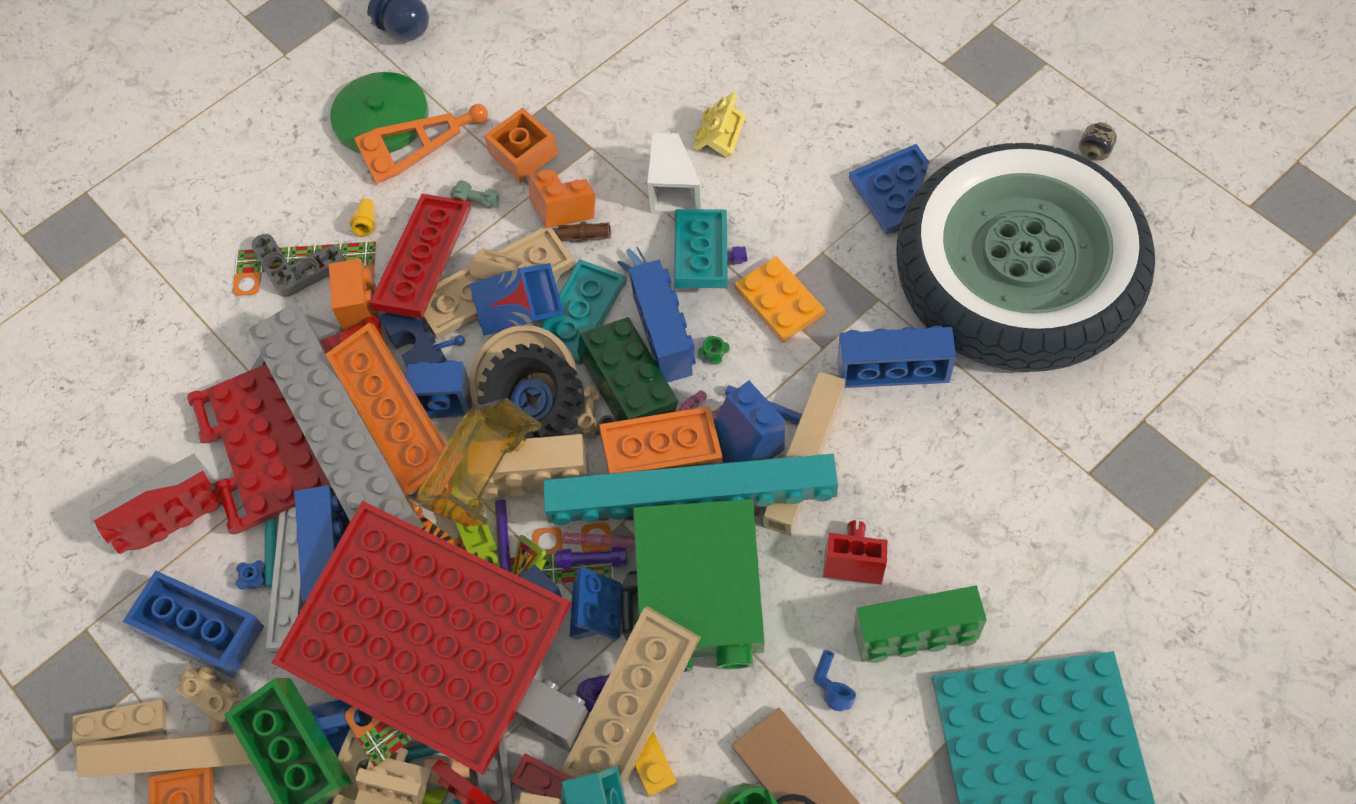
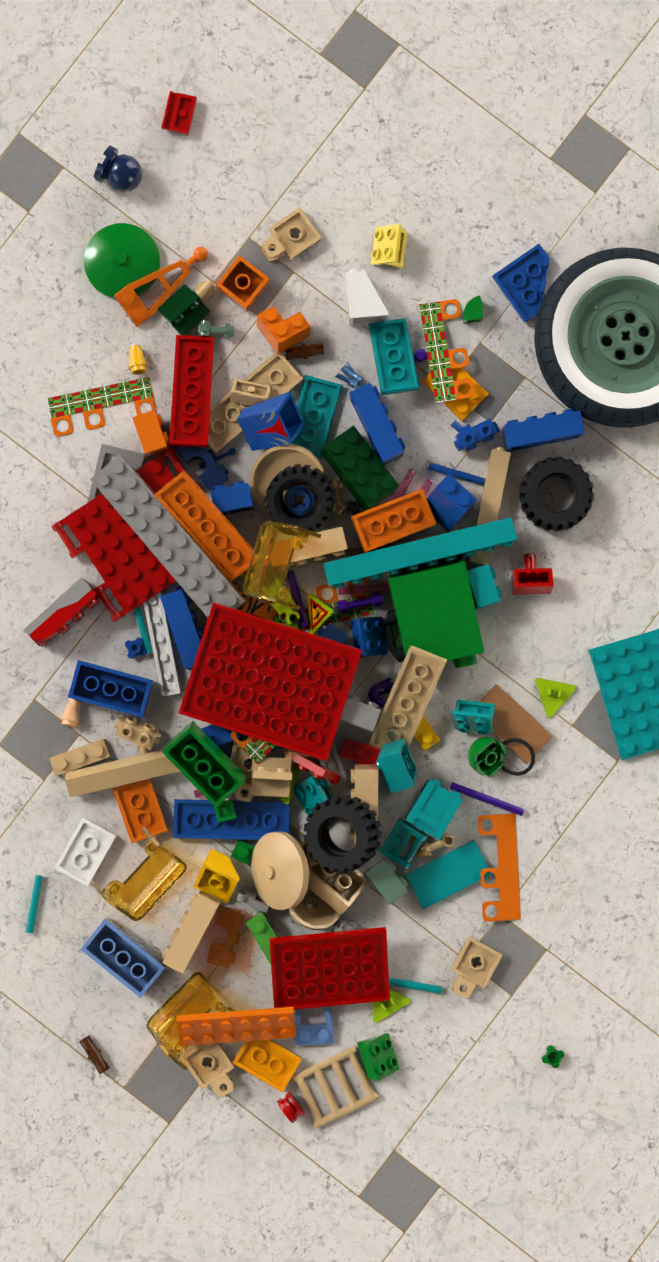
camera: 15 degrees left, 25 degrees up
(128, 655) = (72, 714): none -> light nougat cone
(294, 273) = (97, 413): dark grey beam -> none
(440, 169) = (184, 310): none -> dark green bracket
(473, 151) = (205, 290): none -> tan plate
(585, 109) = (283, 242): none -> tan plate
(717, 343) = (418, 440): green plate -> none
(734, 750) = (473, 717): none -> teal bracket
(763, 256) = (439, 356): none -> piece
(779, 554) = (483, 586): none -> teal brick
(797, 354) = (470, 436): none -> blue brick
(817, 209) = (473, 311): none -> green brick
(836, 694) = (531, 670): blue plate -> none
(869, 739) = (553, 694): none -> lime piece
(917, 412) = (556, 468): none -> black tyre
(919, 624) = (580, 619): green brick -> none

